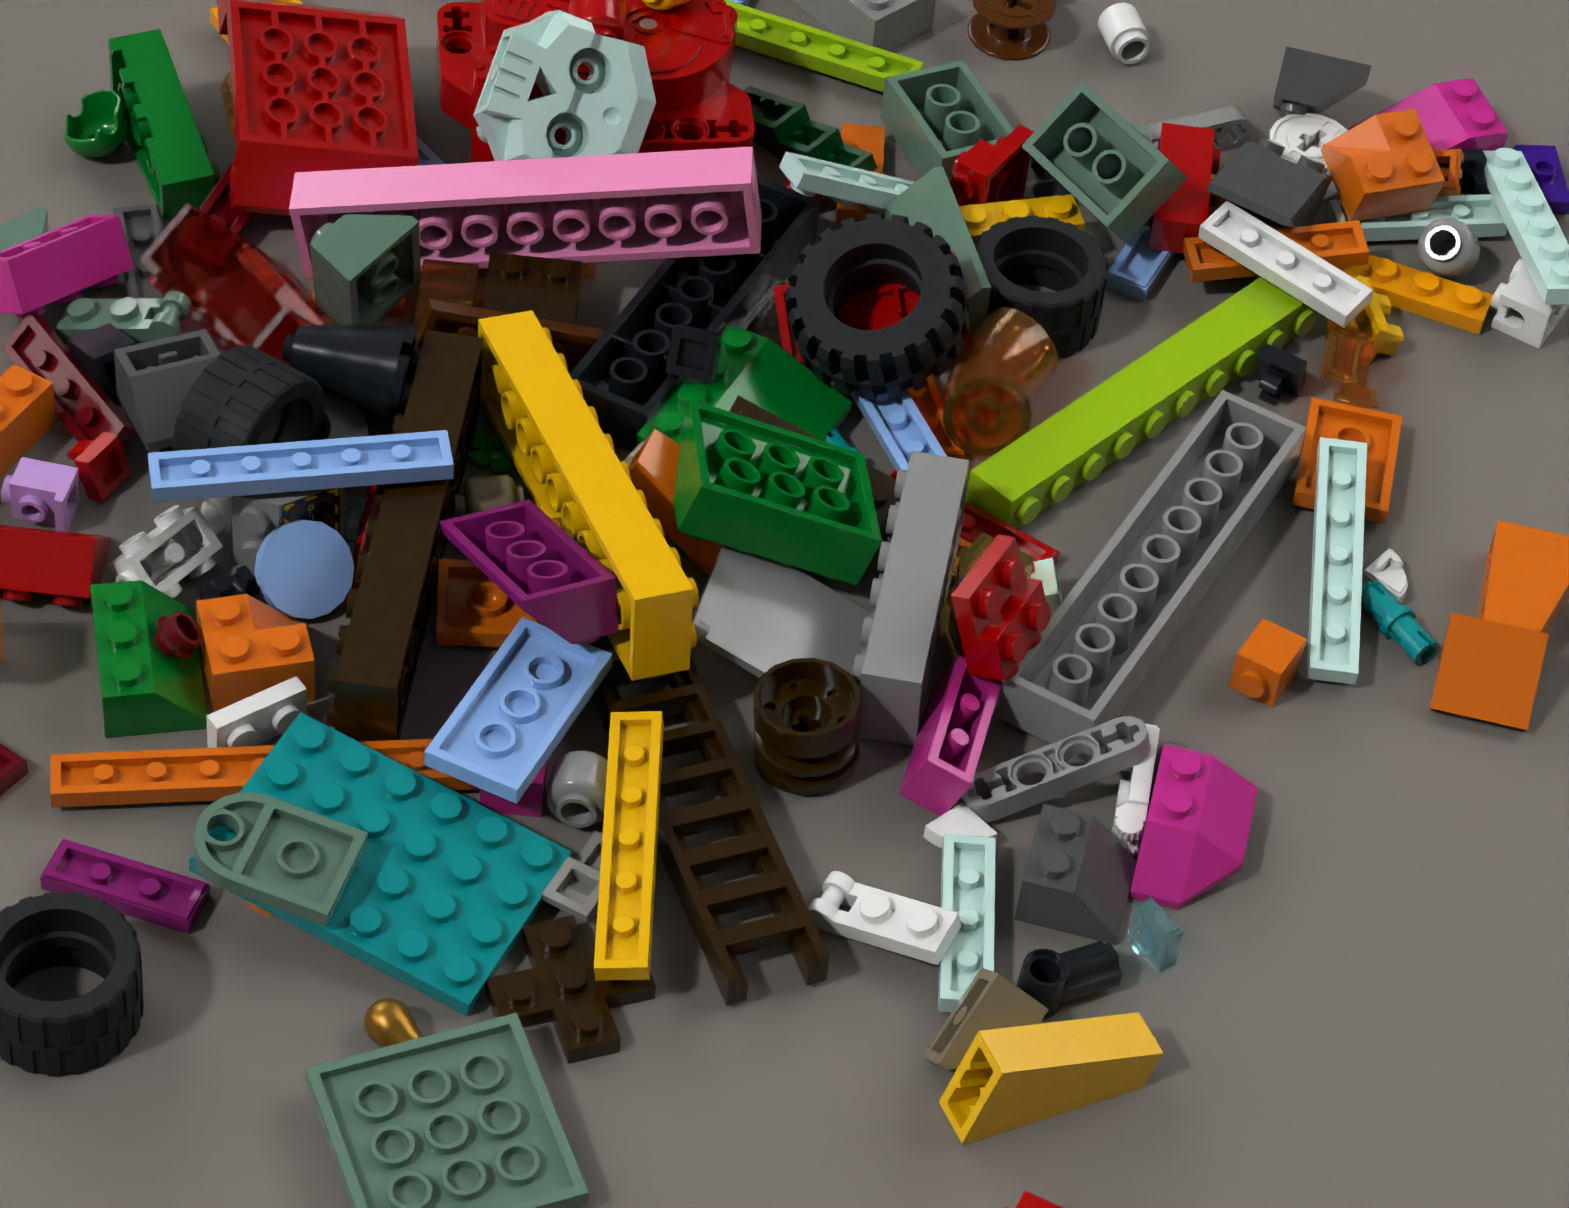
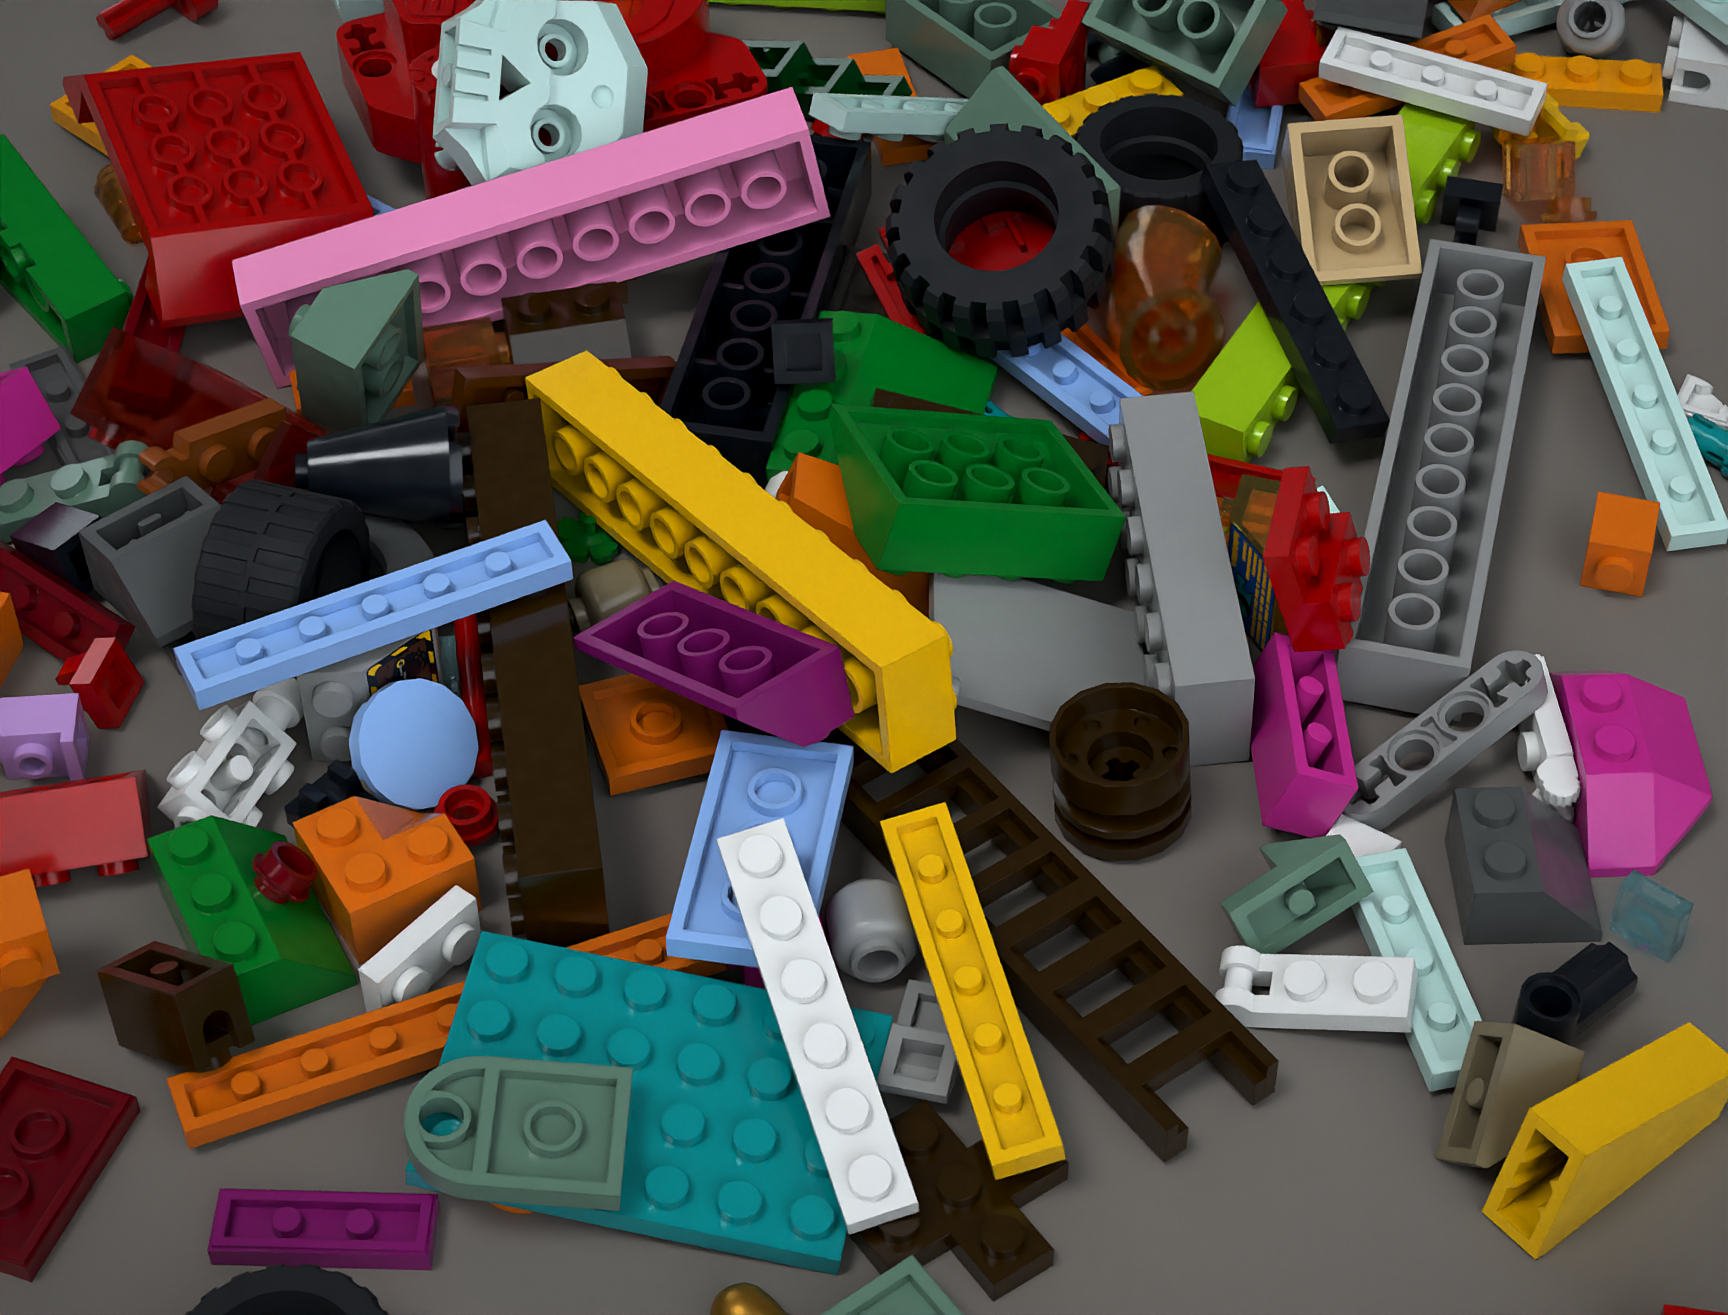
camera: 10 degrees left, 0 degrees up
(71, 706) = (176, 1006): none -> dark brown brick
(234, 313) = (215, 448): none -> dark orange plate
(323, 629) = (470, 812): none -> red plate
(507, 839) = (817, 1027): none -> white plate
(903, 846) = (1303, 890): none -> sand green slope
(1092, 410) = (1294, 302): none -> black plate
(1171, 344) = (1352, 199): none -> tan slope

